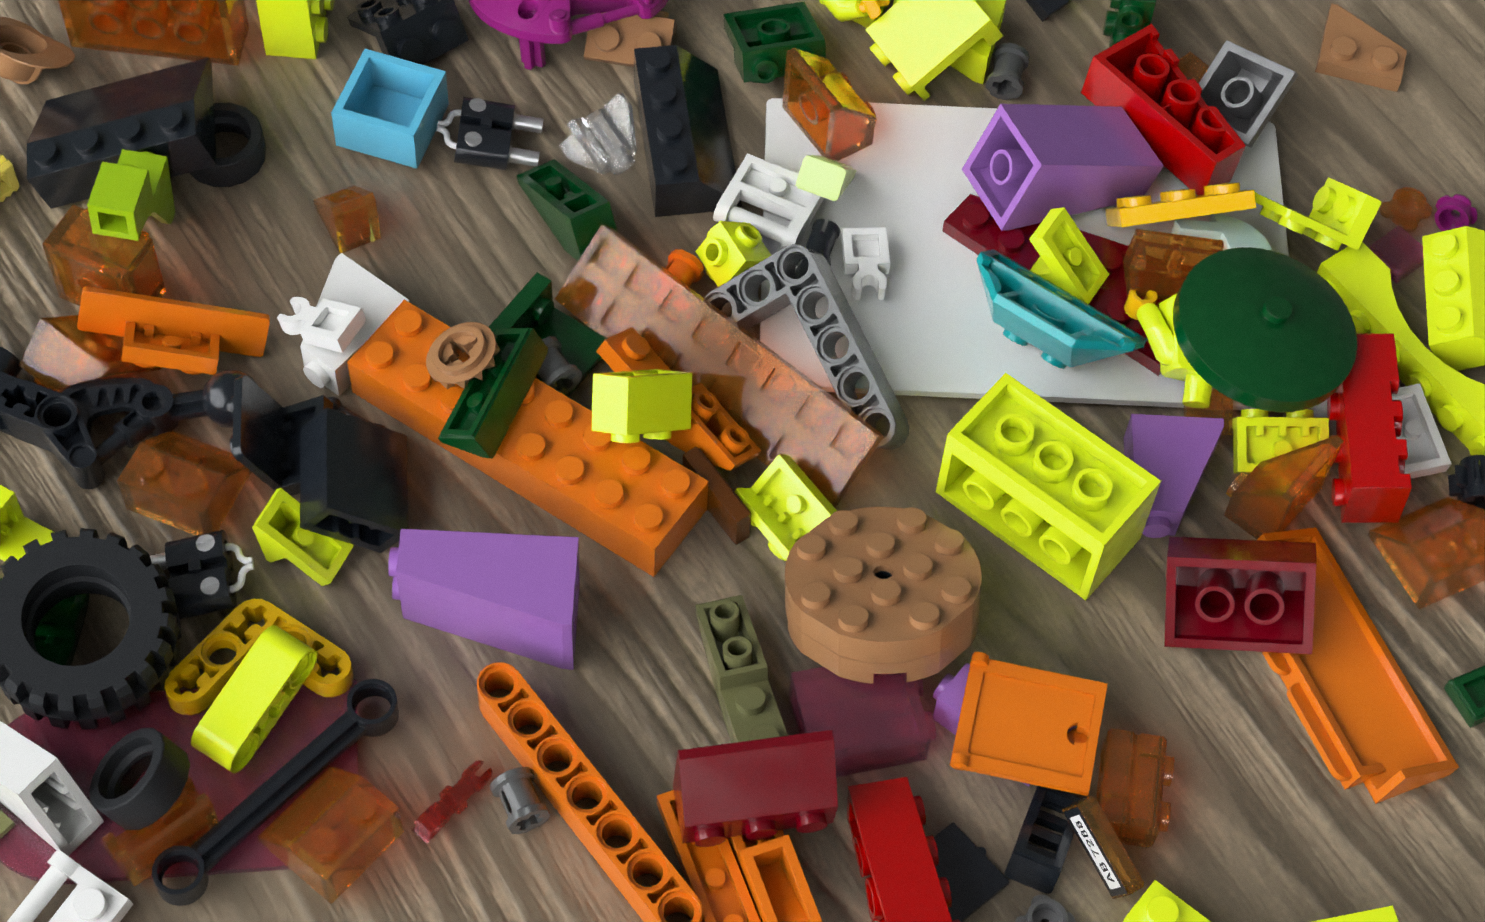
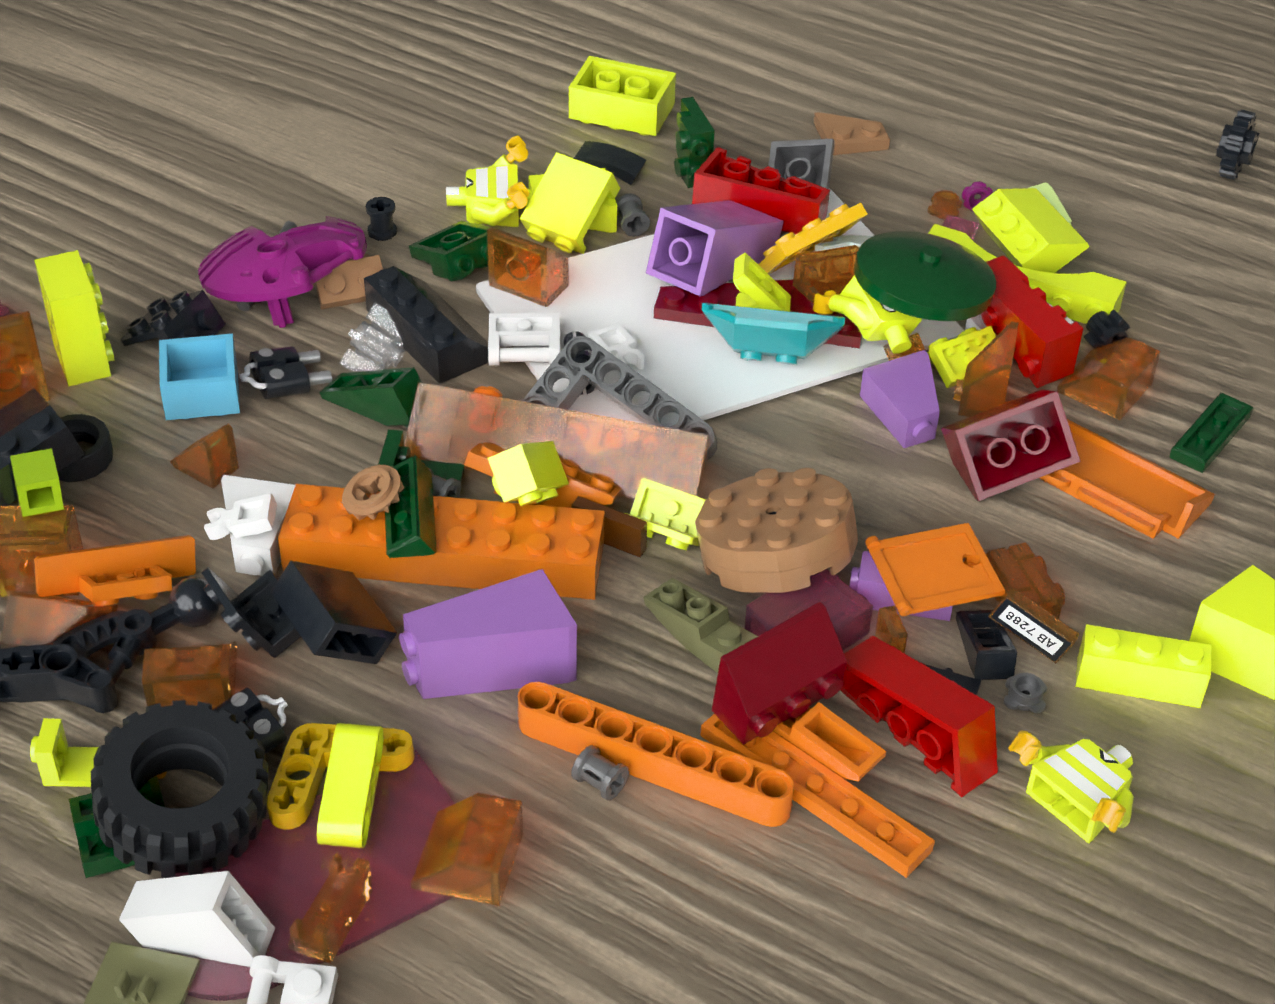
camera: 25 degrees left, 15 degrees down
(155, 792) = (313, 883): black tyre -> none
(275, 792) = (405, 848): black piece -> none
(282, 537) = (304, 670): neon yellow slope -> none
(452, 801) = (546, 796): clear red piece -> none
(731, 250) = (516, 374): neon yellow brick -> none
(824, 176) = (557, 299): yellowish green slope -> none
(938, 780) = (890, 628): none -> clear orange tile
(1046, 485) = (842, 423): neon yellow brick -> none
(1337, 215) = (906, 212): neon yellow bracket -> none

